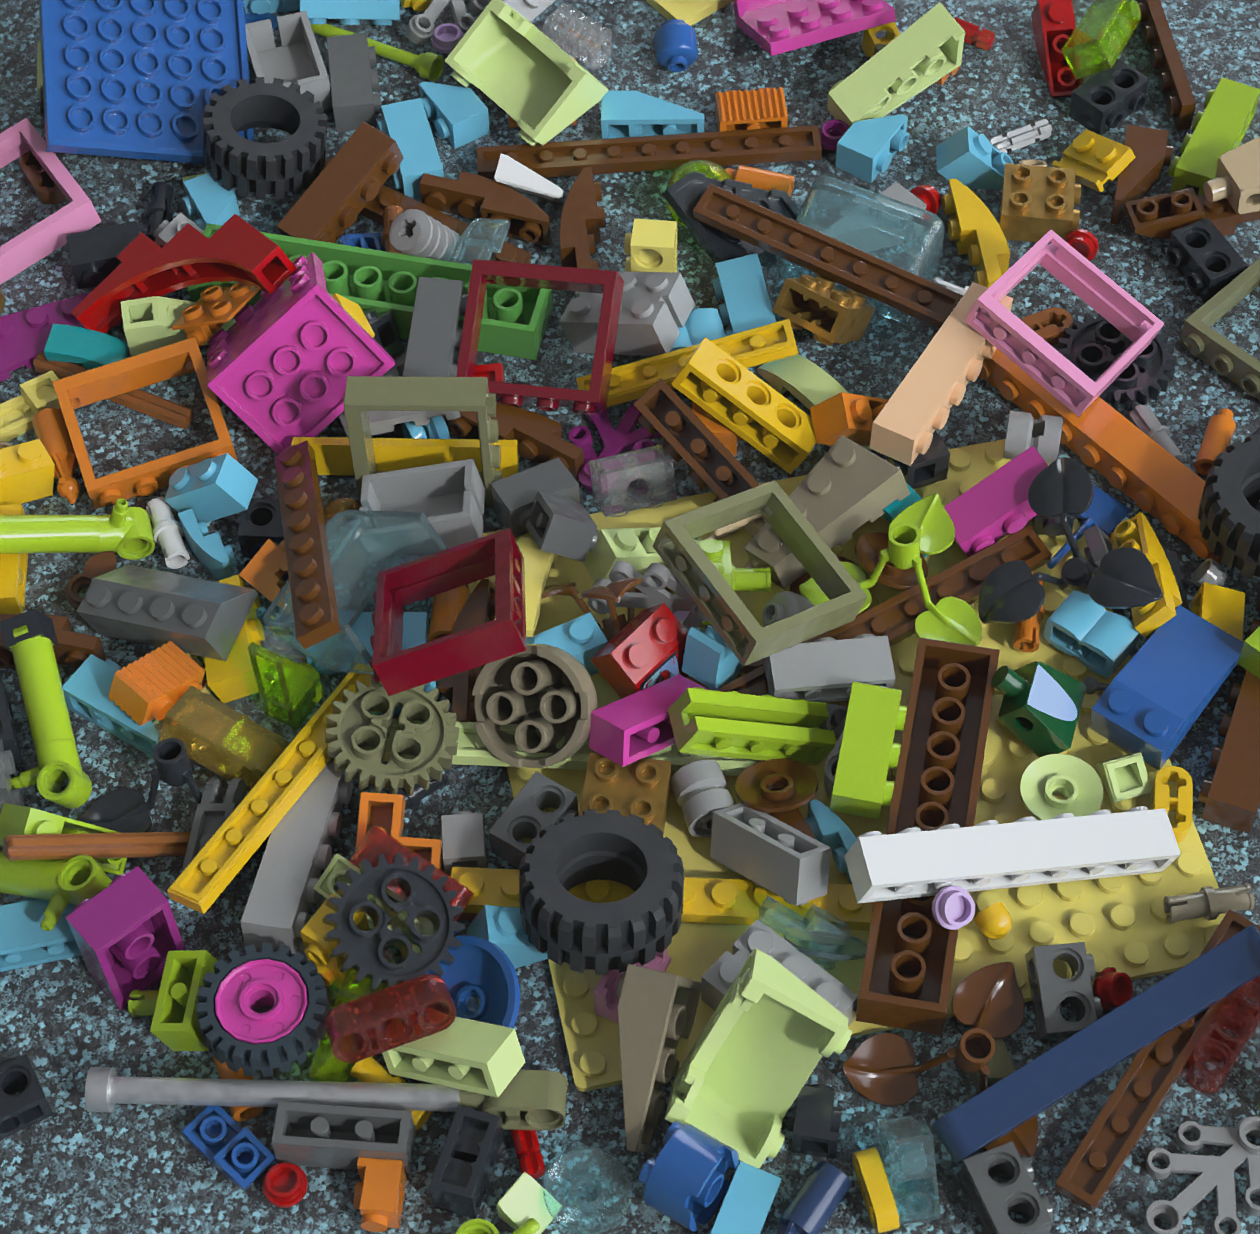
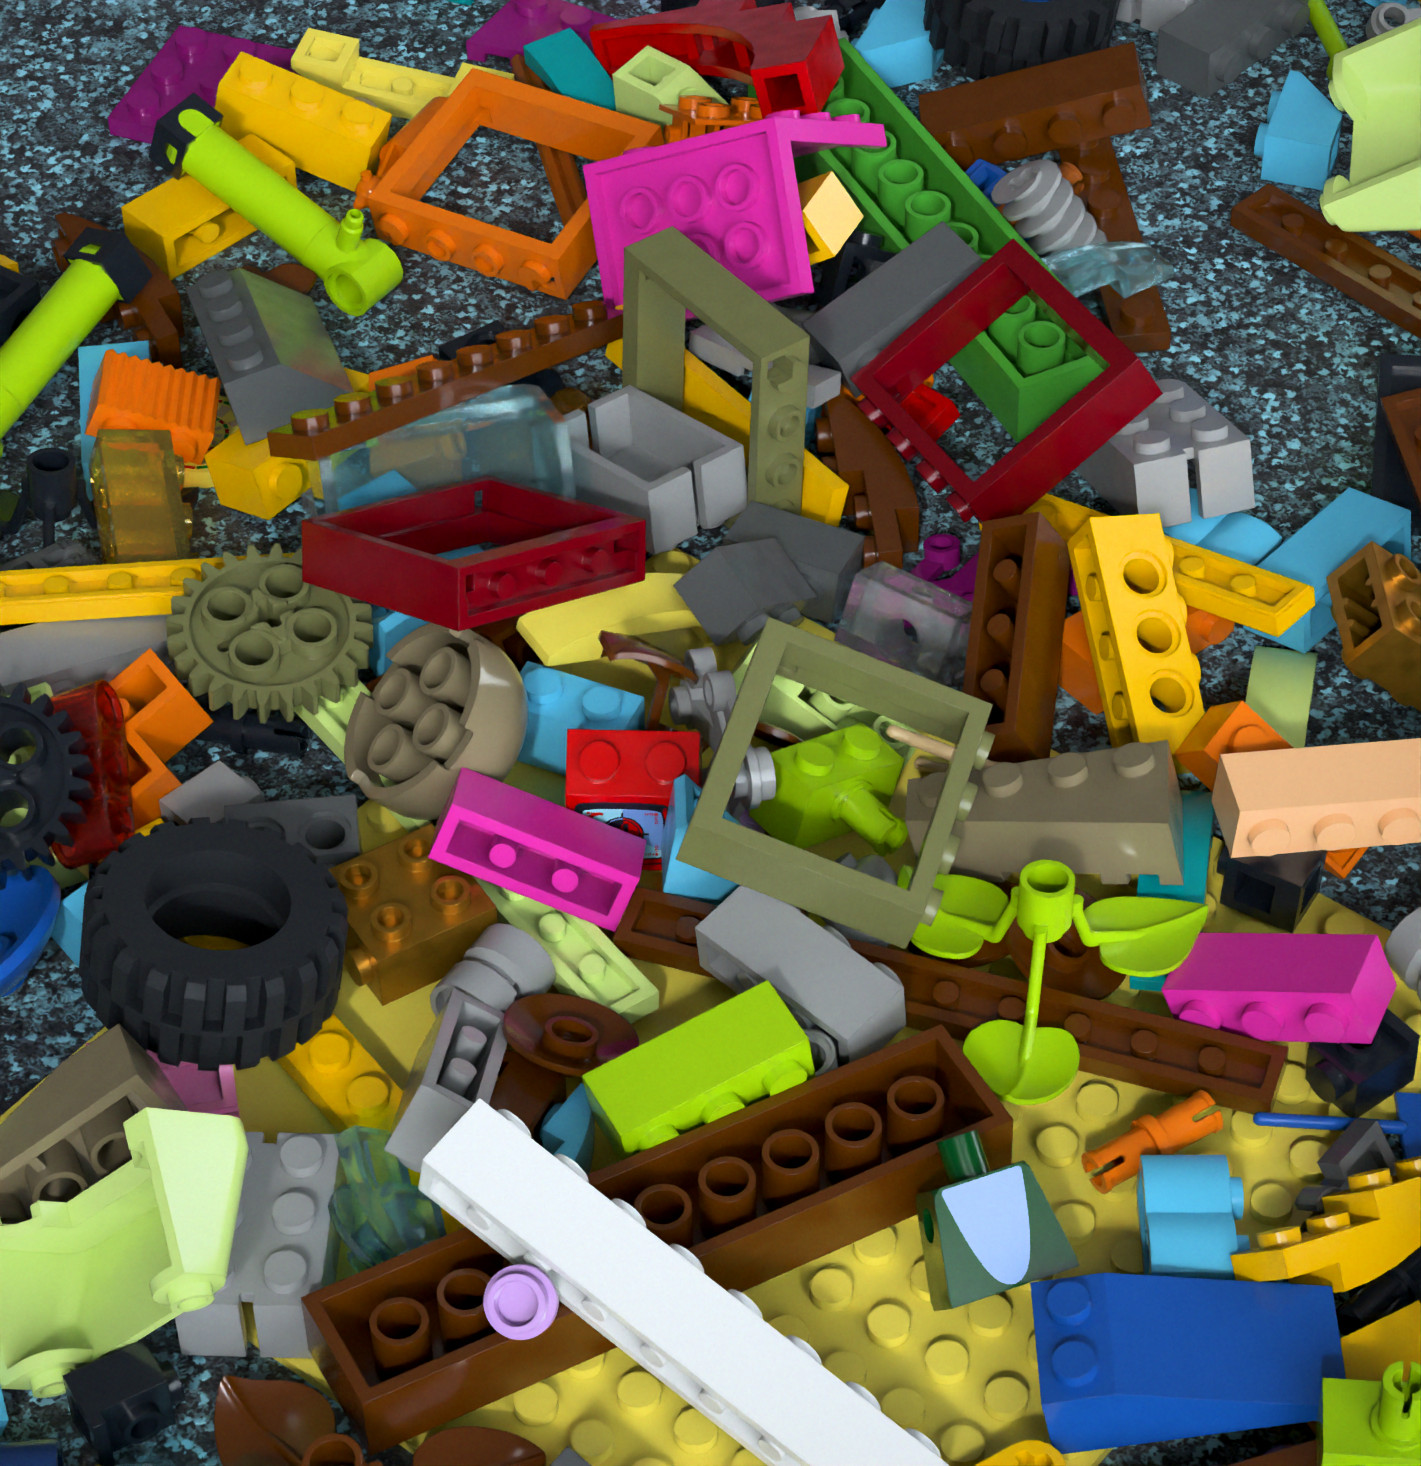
camera: 50 degrees right, 10 degrees down
(167, 533) = (397, 304): white pin -> none
(207, 547) = (413, 326): medium azure slope -> none
(211, 488) = (475, 282): medium azure brick -> none
(285, 687) = (266, 492): clear neon green slope -> none
(410, 128) = (1196, 138): medium azure brick -> none
(484, 198) = (1195, 245): reddish brown slope -> none
(522, 179) = (1261, 236): white slope -> none
(581, 222) = (1270, 341): reddish brown slope -> none
(651, 246) = (1289, 424): light yellow brick -> none
(750, 726) = (612, 932): lime brick -> none
(994, 921) = (599, 1400): yellow hinge -> none
(1060, 776) = (888, 1325): yellowish green dish -> none
(1124, 573) = (1267, 1159): black plant -> none
(1124, 777) = (991, 1413): yellowish green slope -> none

